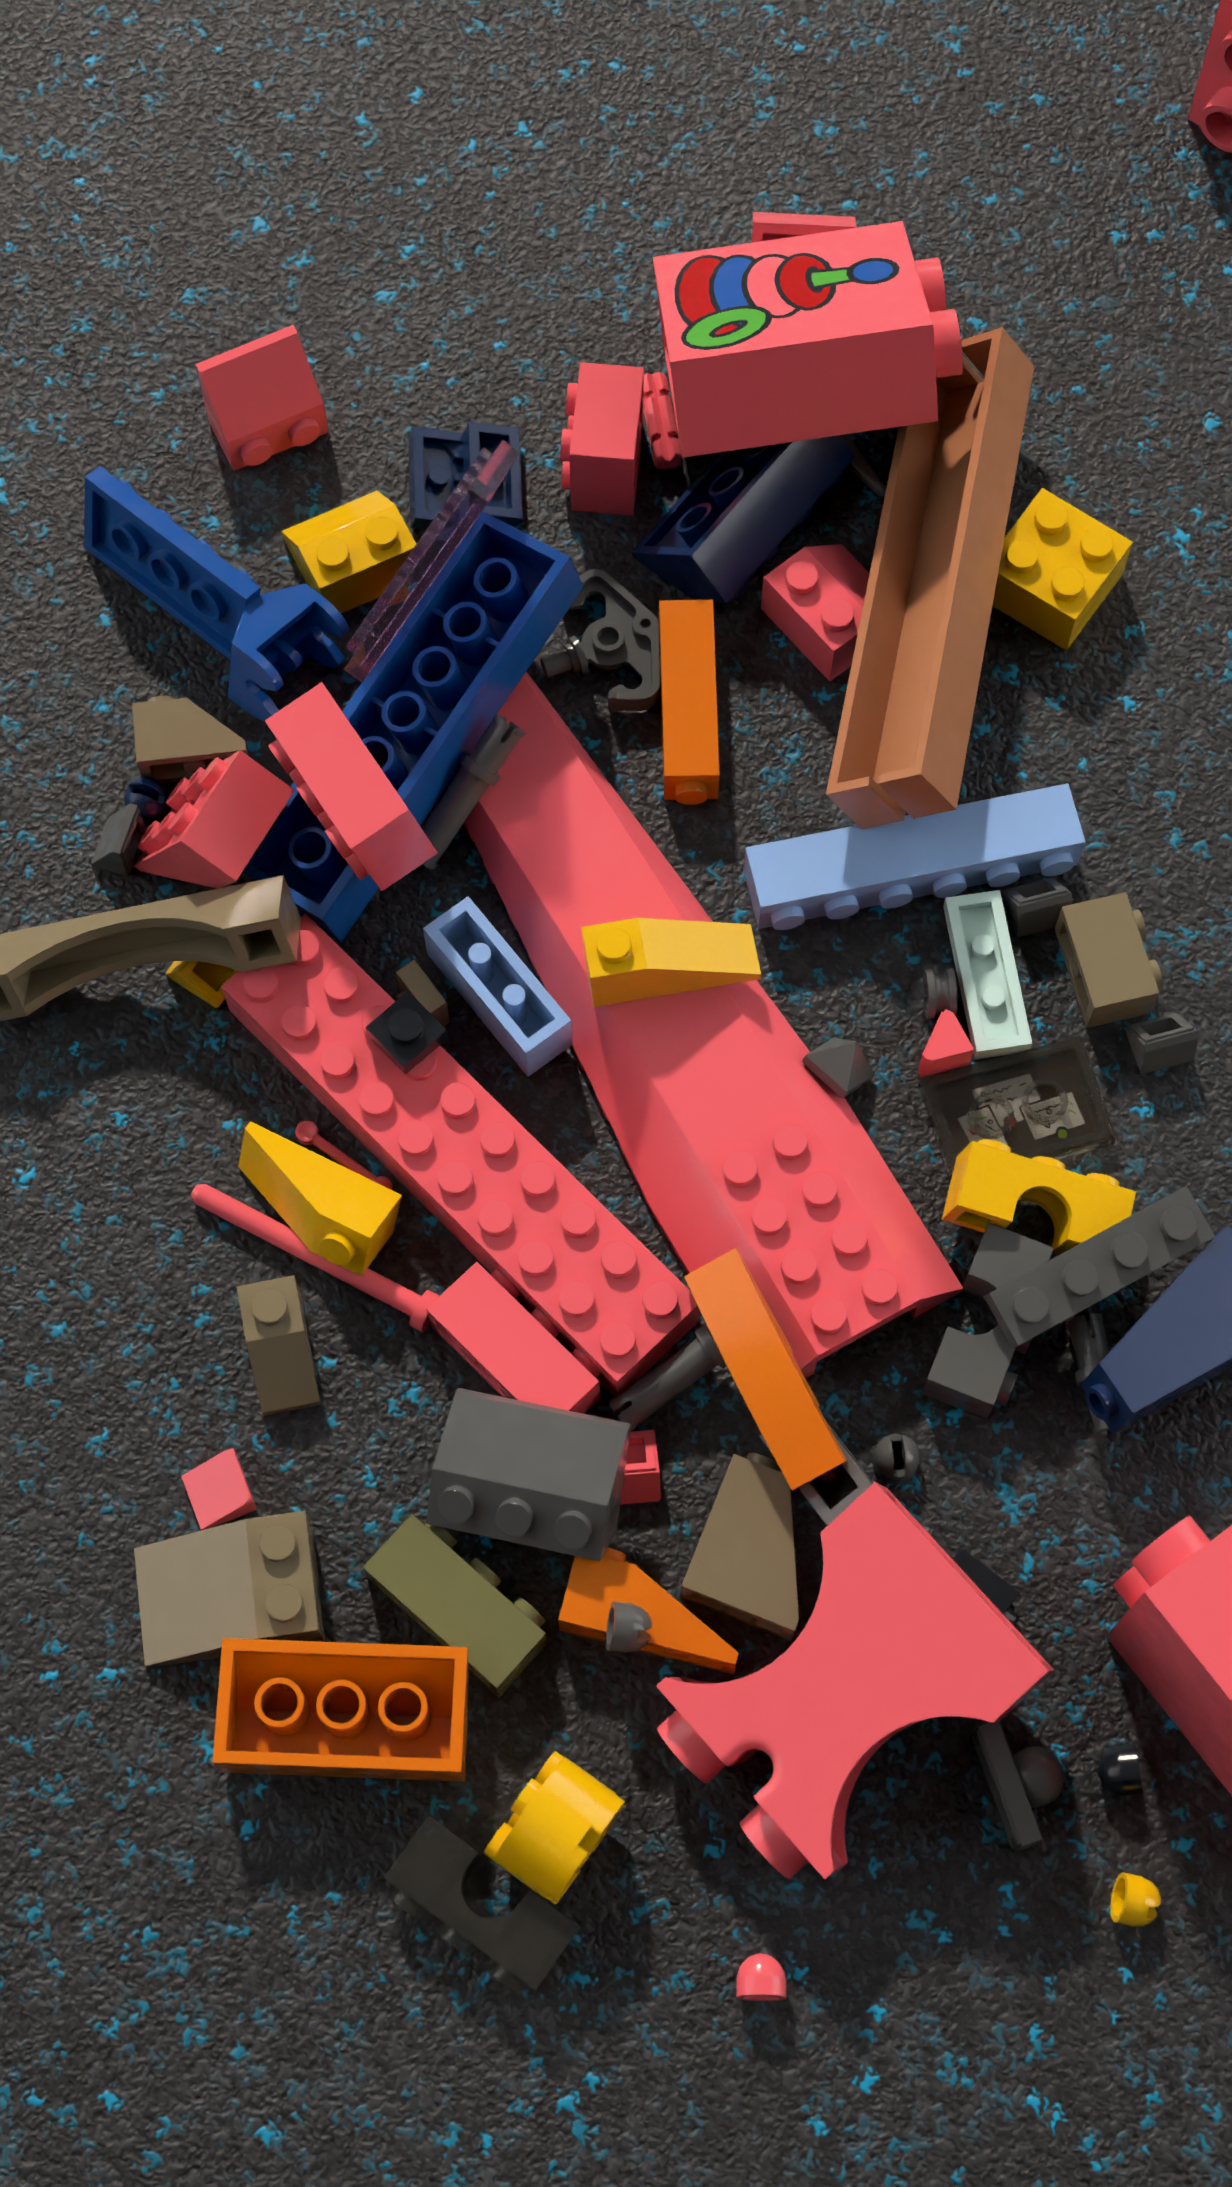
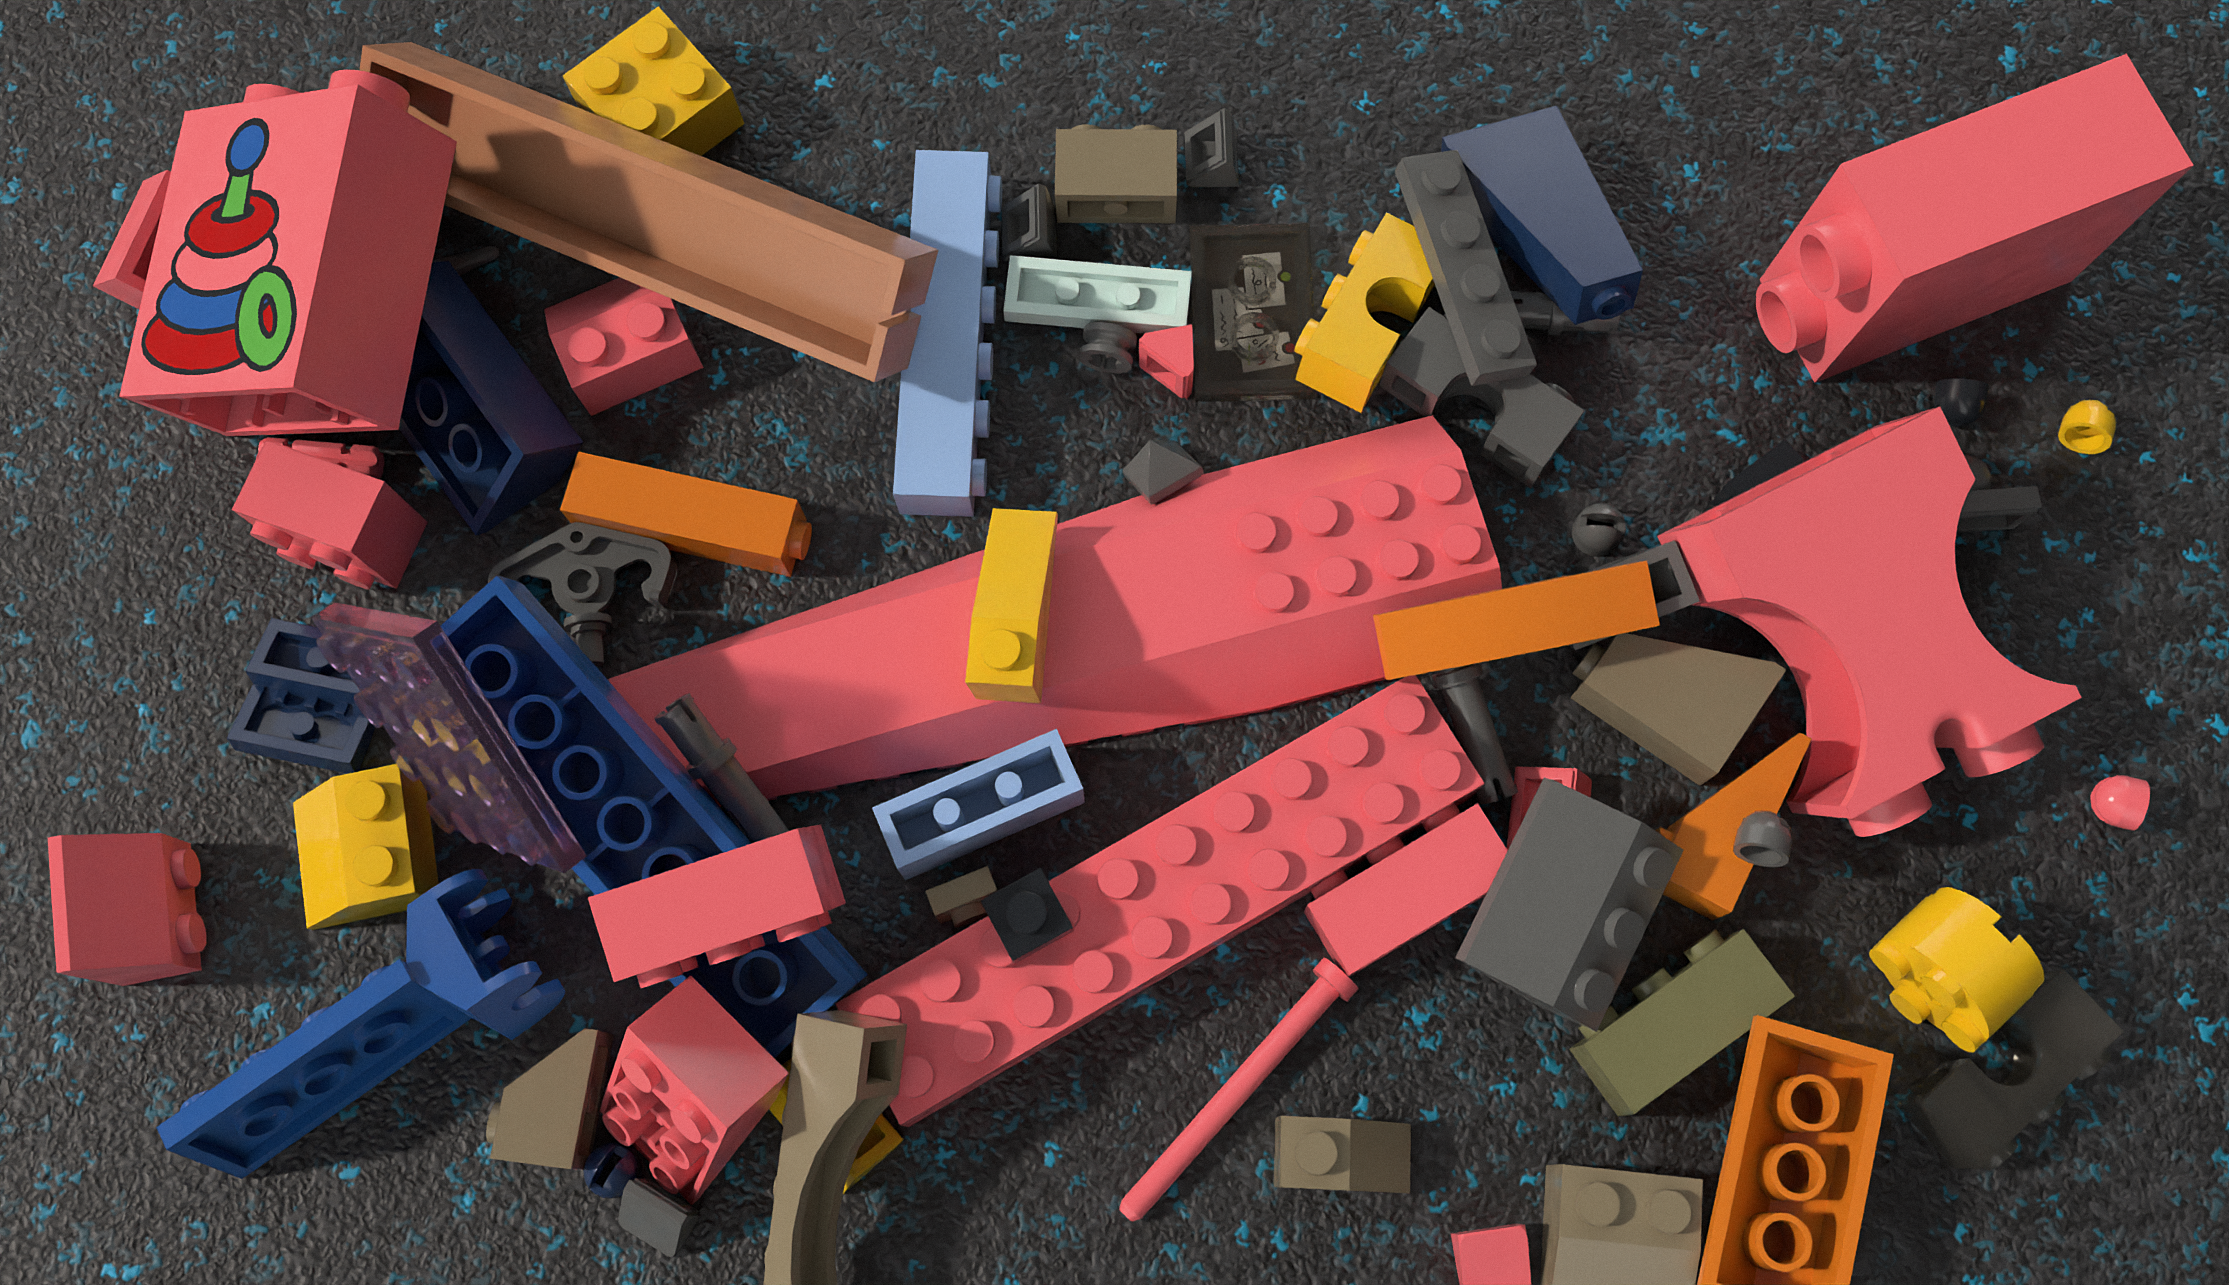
camera: 75 degrees left, 5 degrees up
(308, 1134) = (1087, 1067): coral hinge -> none
(321, 1201) = (1188, 1065): yellow slope -> none

